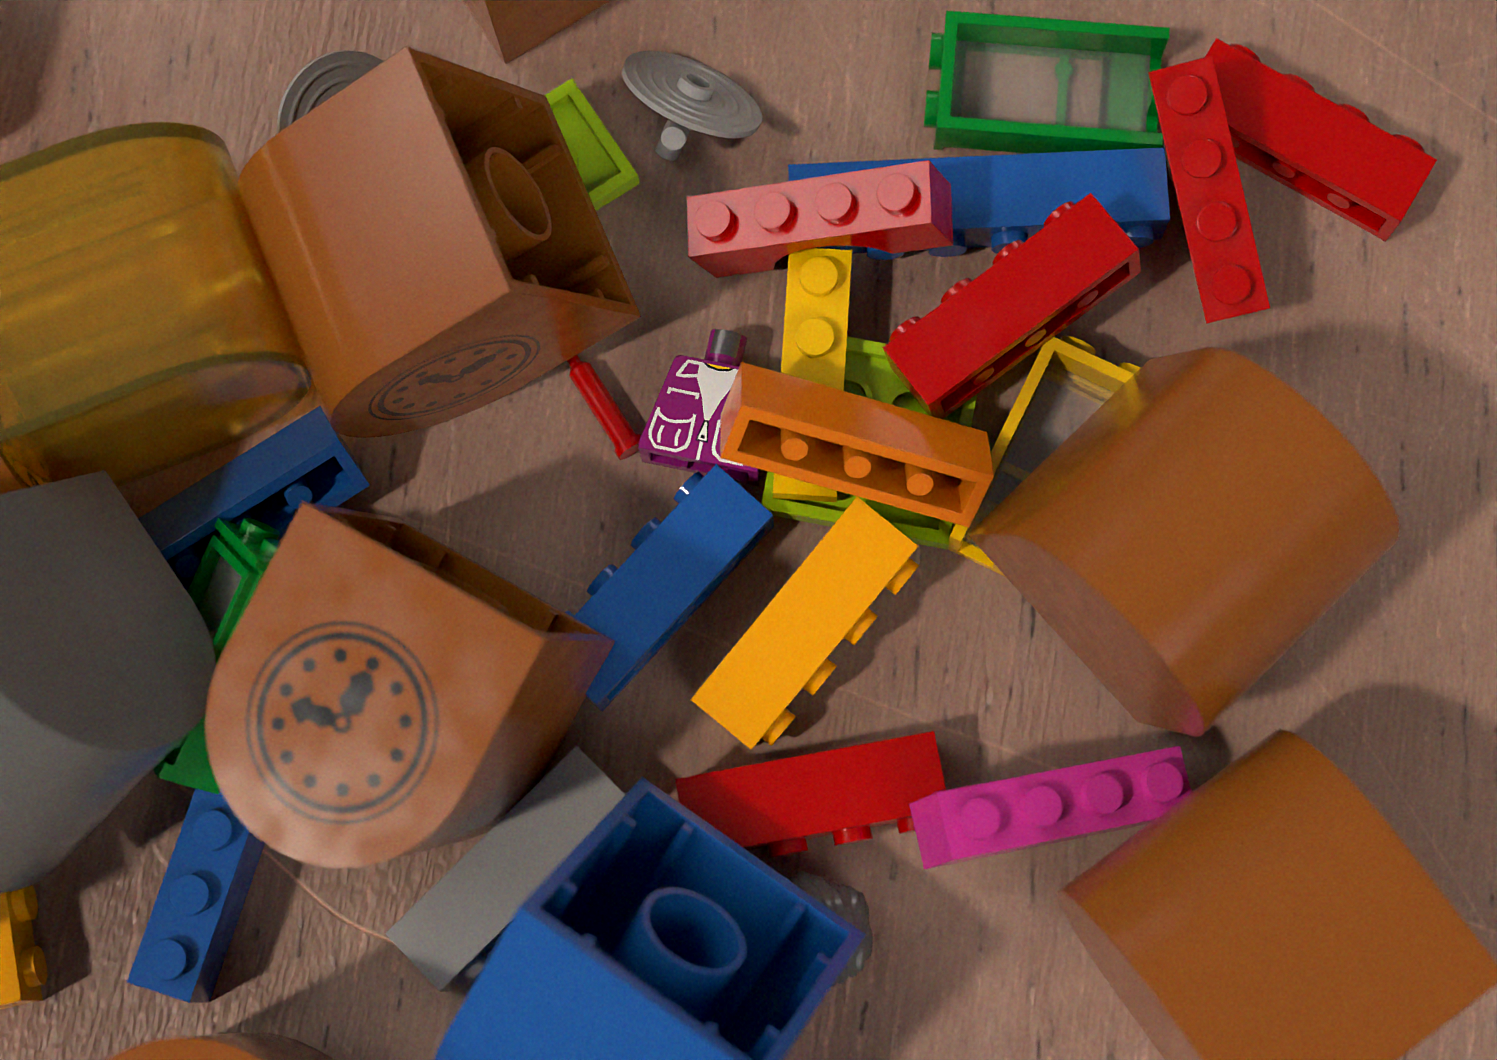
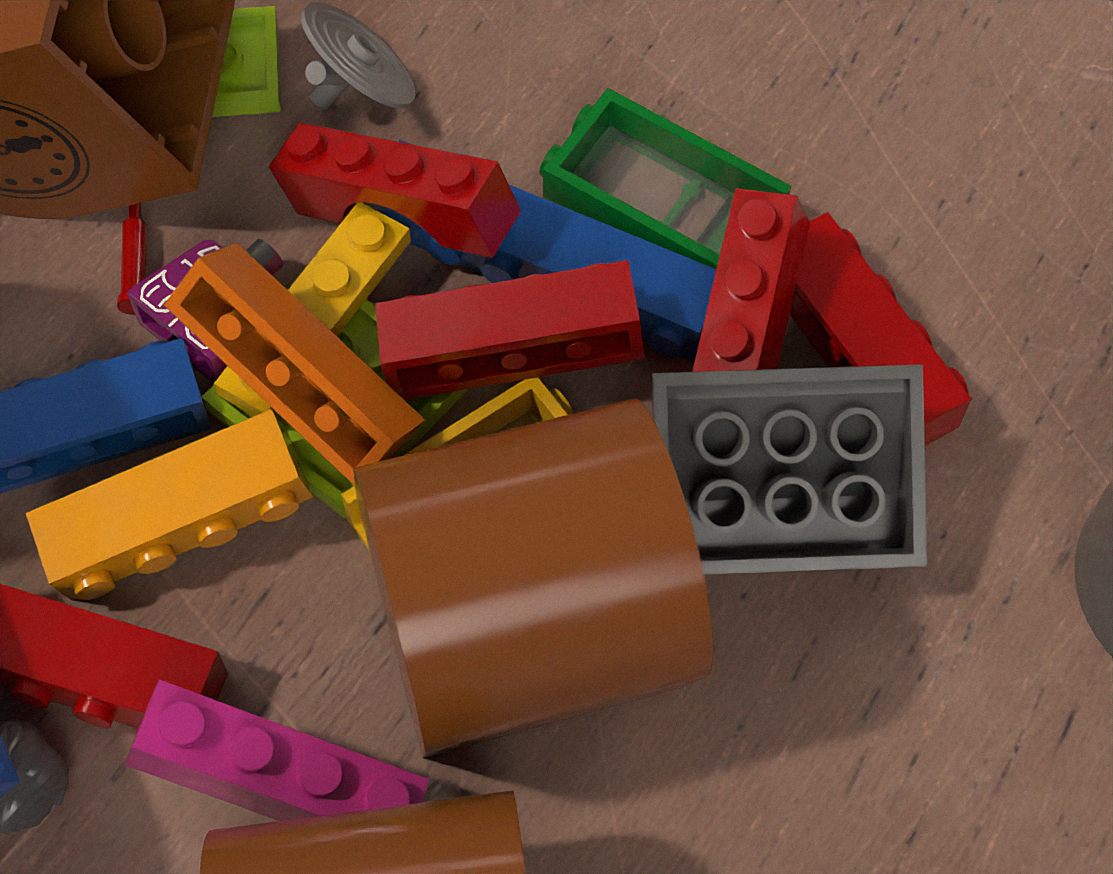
camera: 20 degrees right, 15 degrees down
(1344, 302) = (799, 465): none -> dark grey slope

